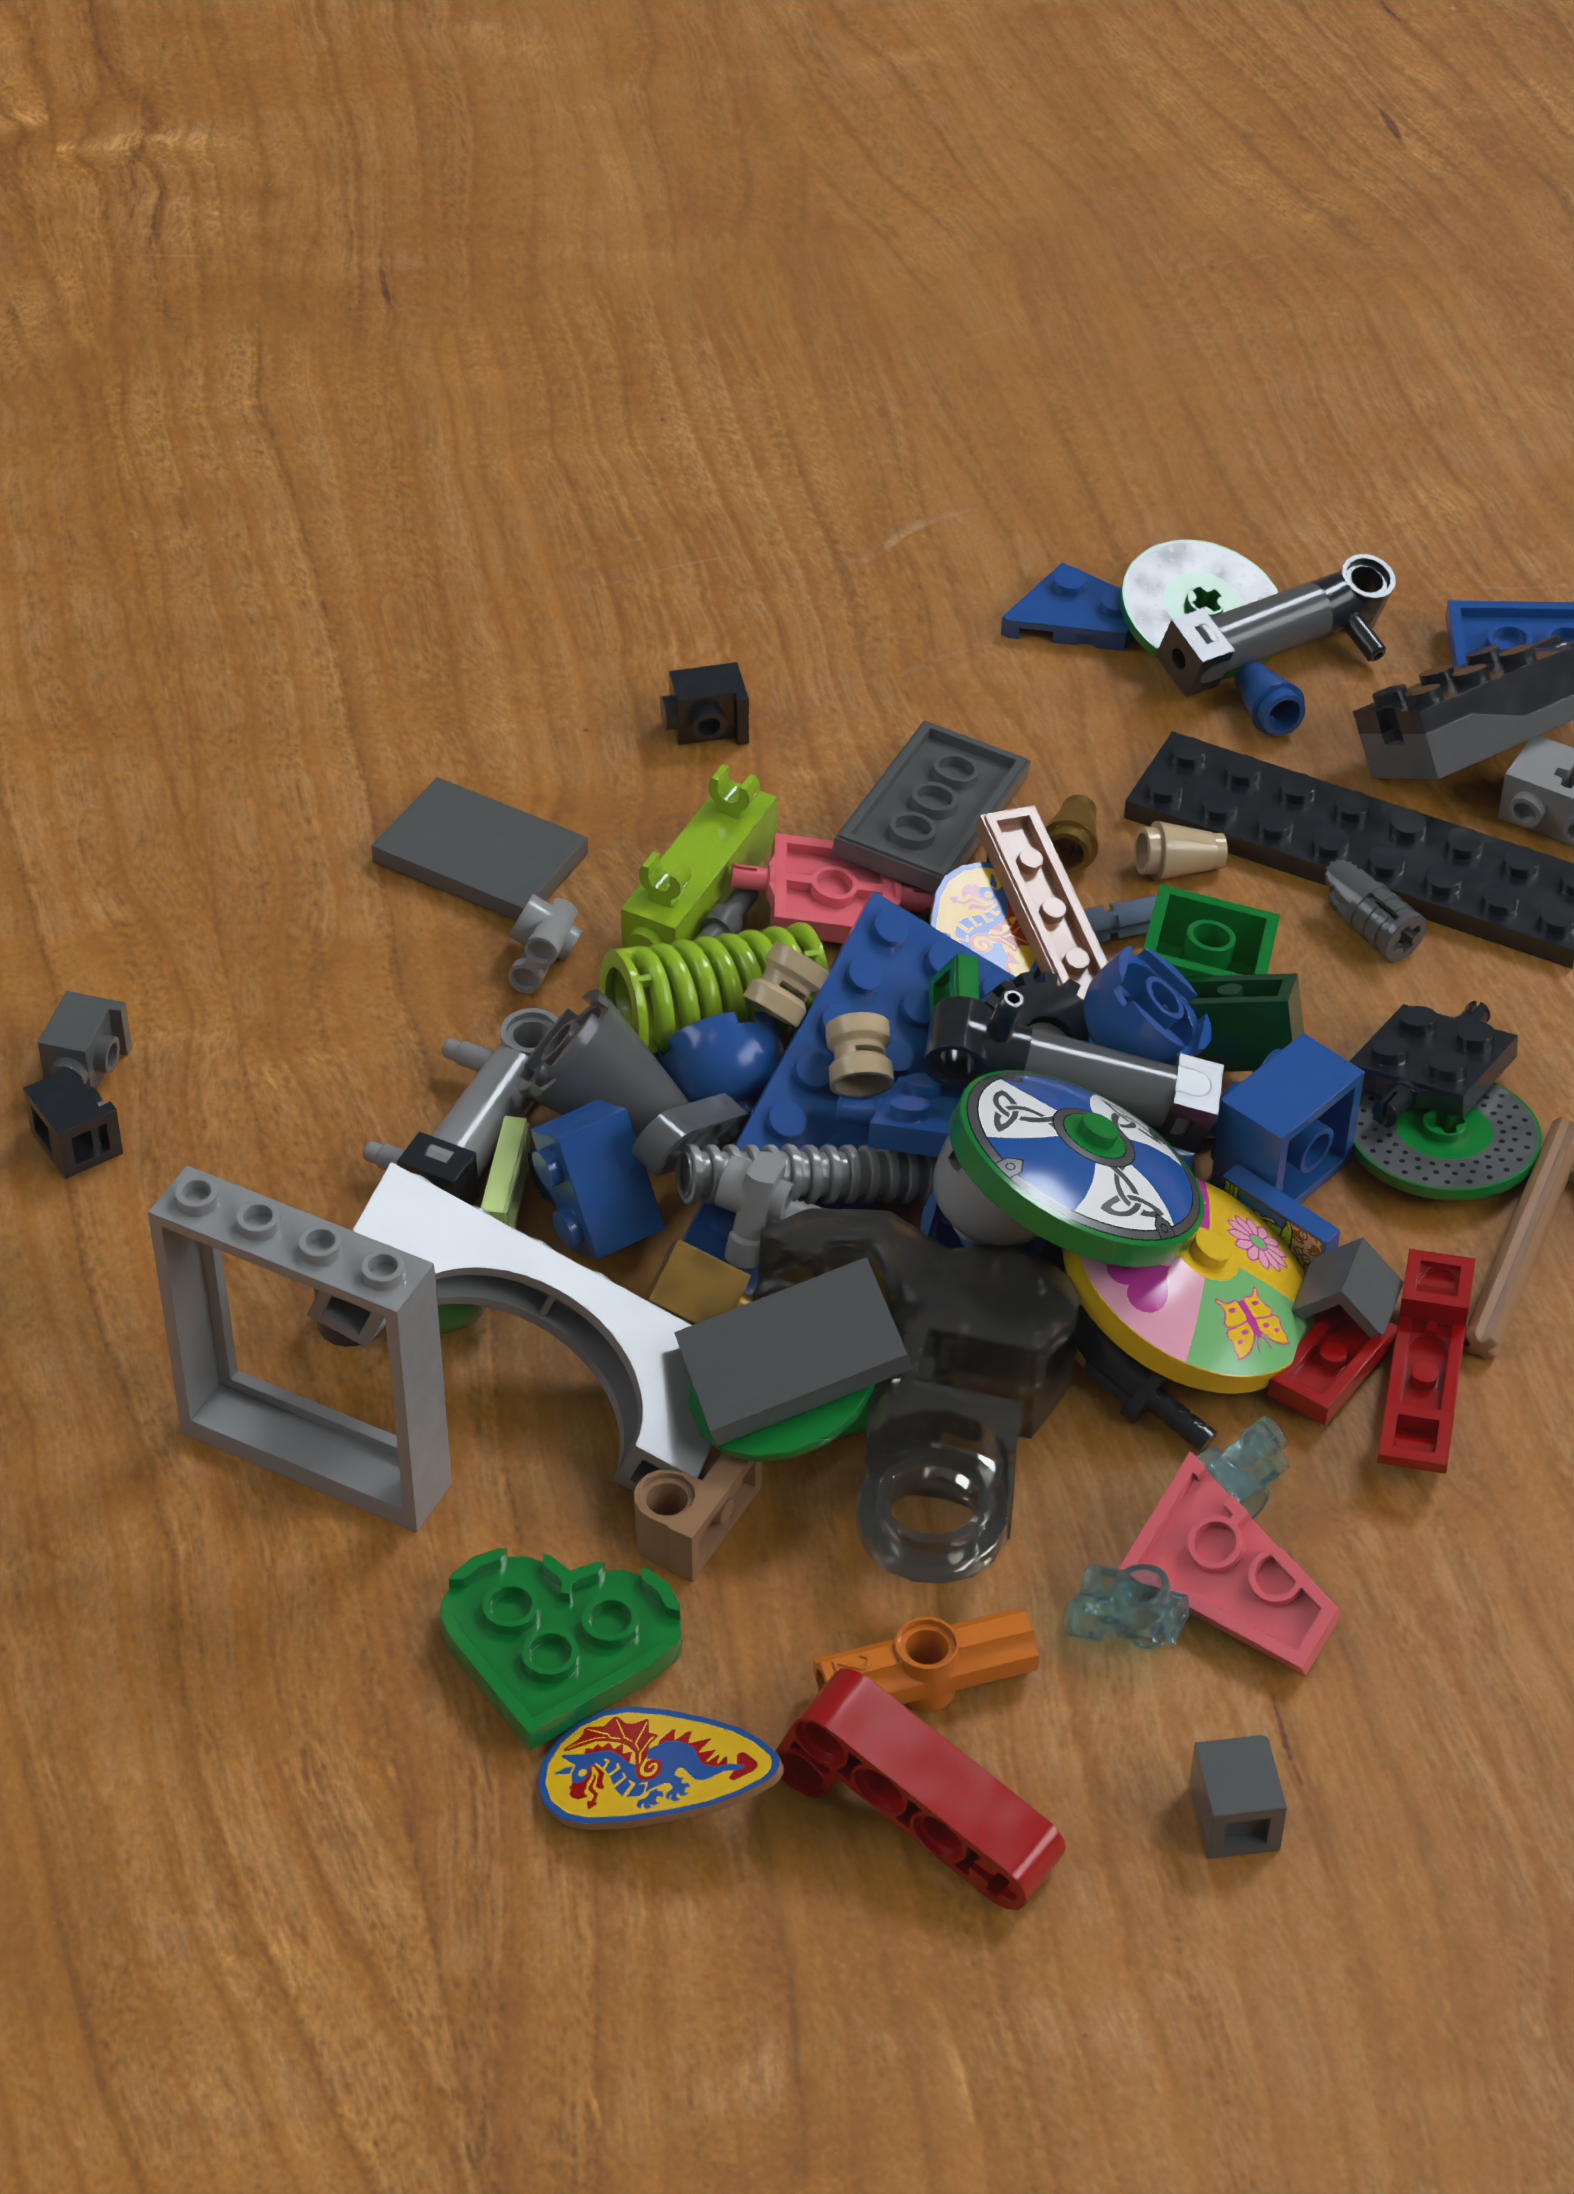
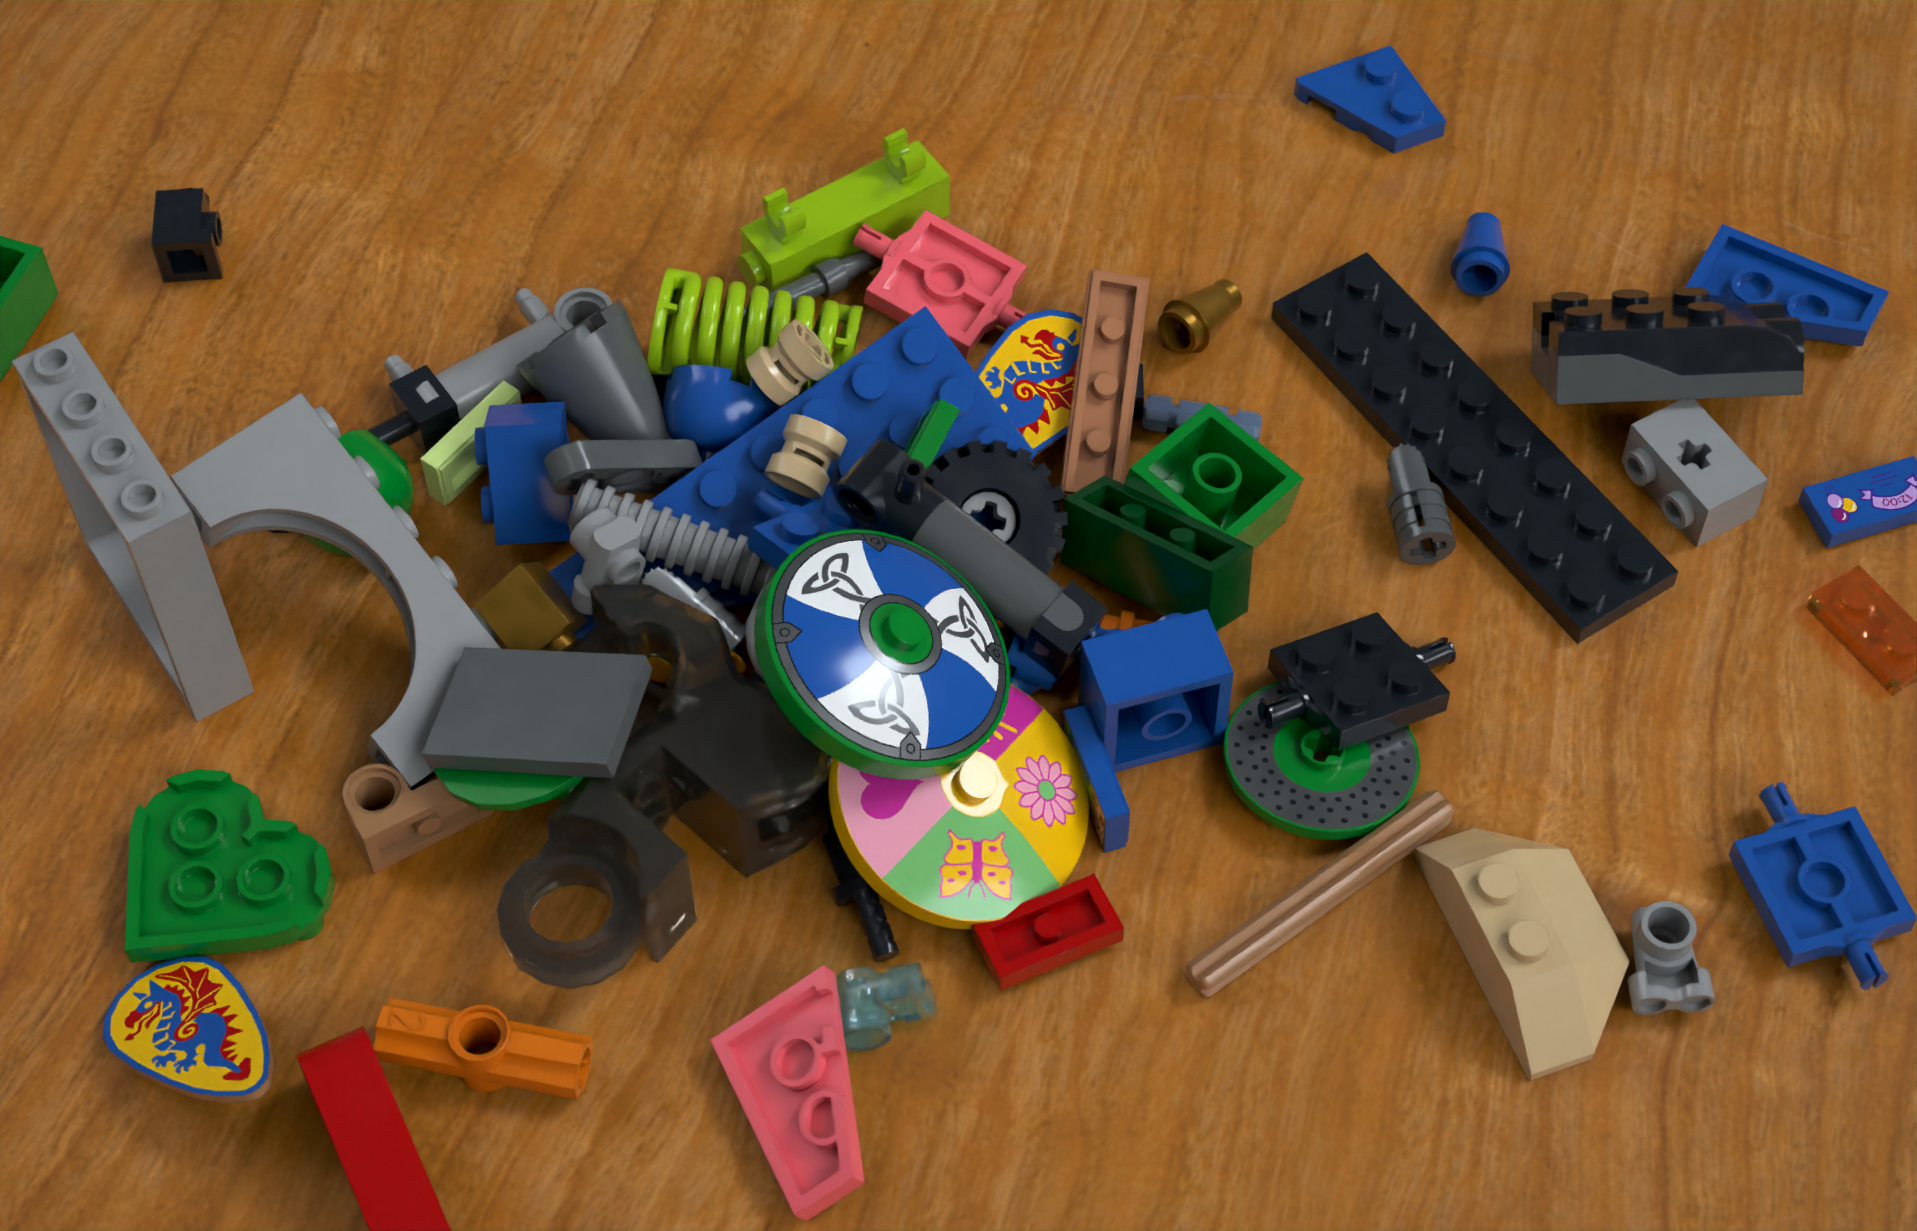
camera: 30 degrees right, 10 degrees up
(86, 1037) = (244, 168): dark grey brick -> none
(479, 848) = (691, 122): dark grey tile -> none
(547, 935) = (674, 224): light grey plate -> none
(706, 704) = (970, 62): black brick -> none
(927, 804) = (1114, 222): dark grey tile -> none
(1127, 1605) = (689, 1079): clear light blue plate -> none
(1144, 1008) = (1079, 525): blue cylinder -> none
(1177, 850) = (1283, 372): tan cone -> none
(1185, 578) = (1463, 174): piece -> none
(1204, 647) = (1449, 183): piece -> none
(1354, 1279) = (1100, 874): dark grey panel -> none
(1426, 1361) = (1126, 982): red slope -> none

